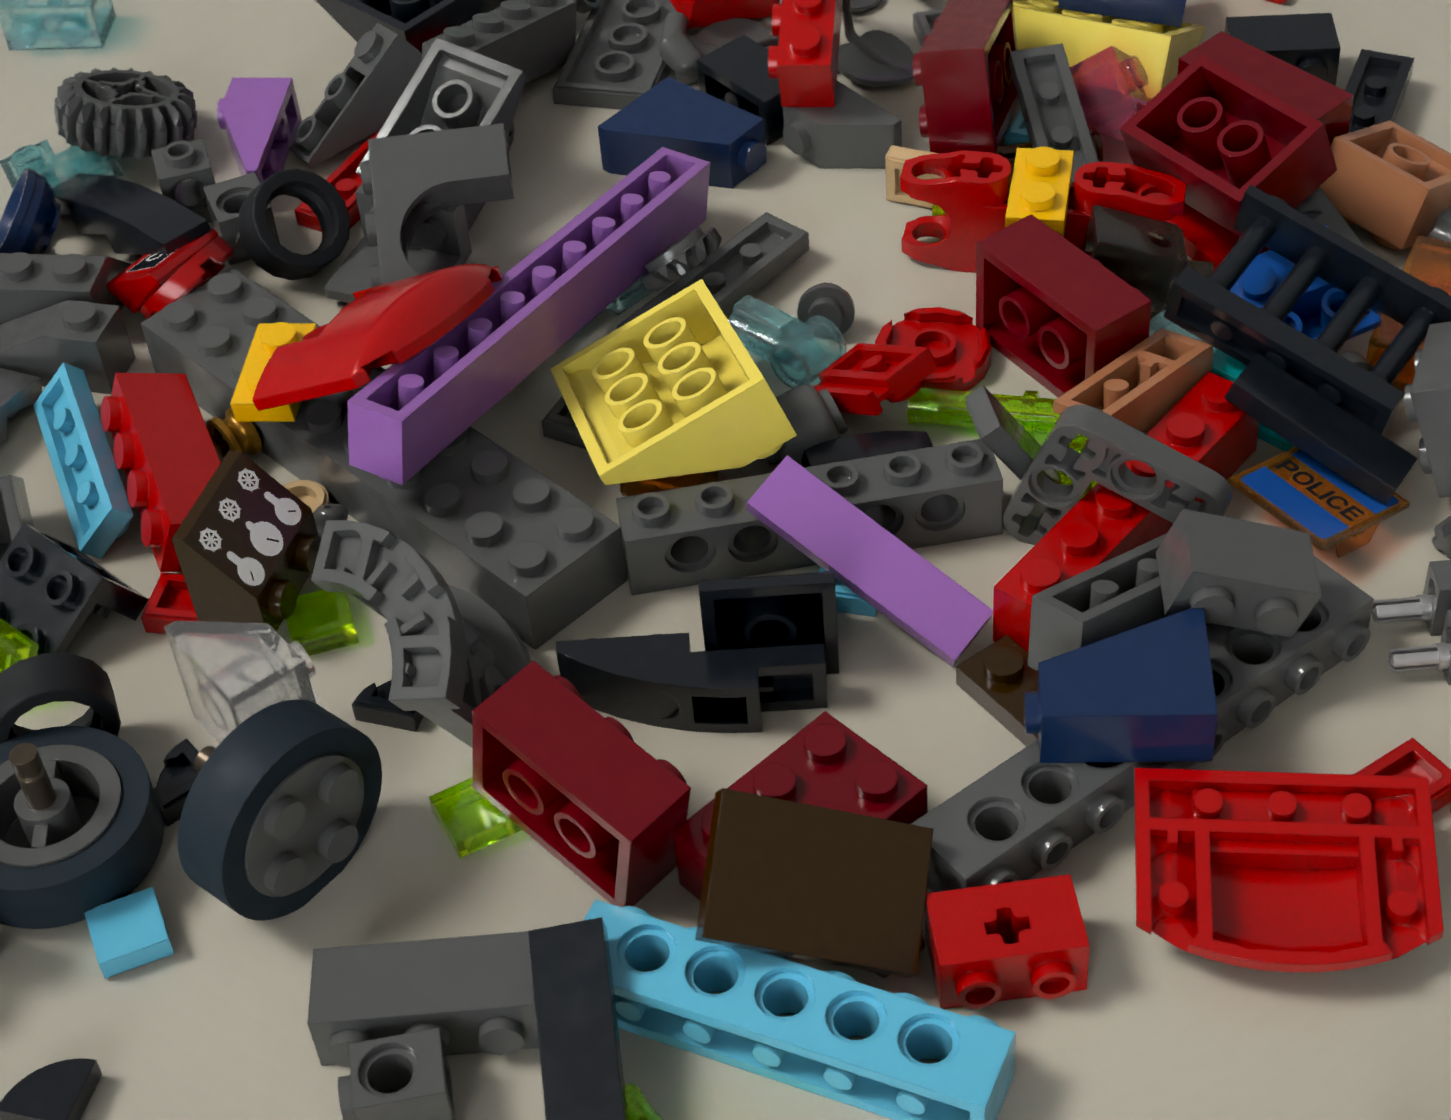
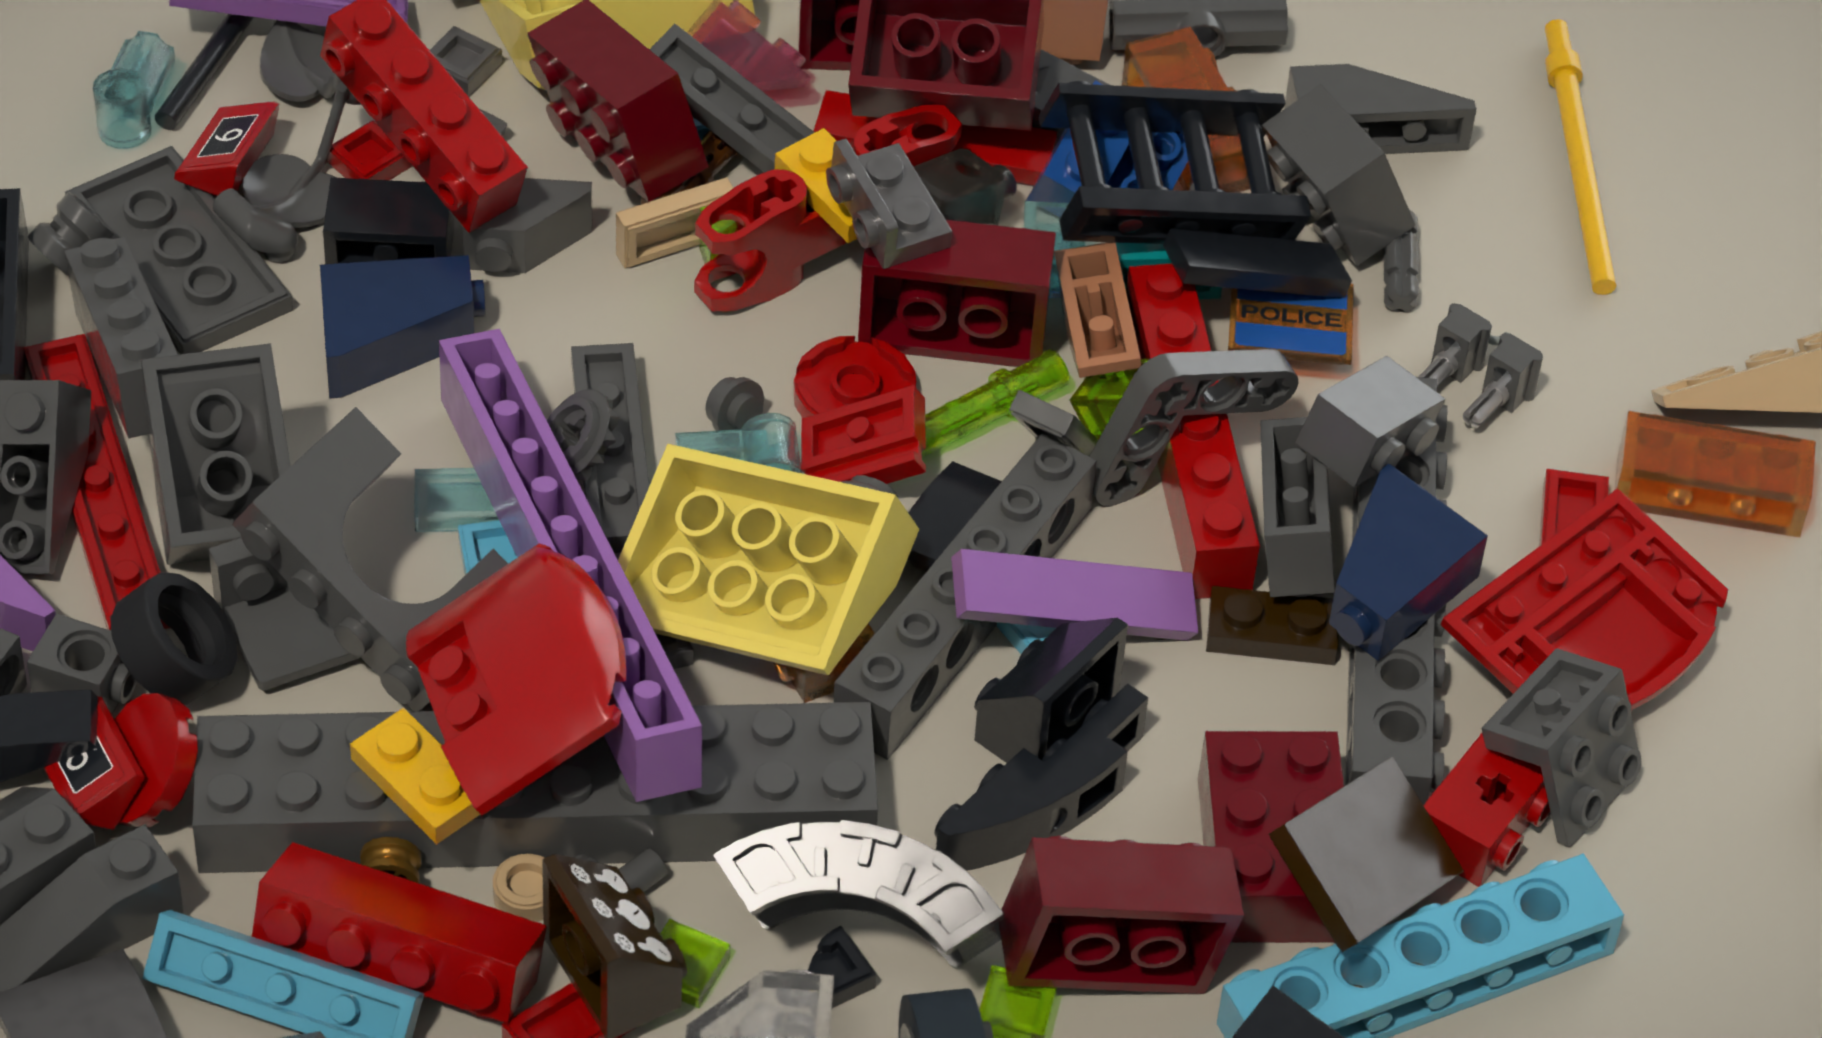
camera: 55 degrees left, 5 degrees up
(1033, 206) = (887, 203): none -> flat silver bracket
(1123, 943) = (1580, 732): none -> dark grey bracket

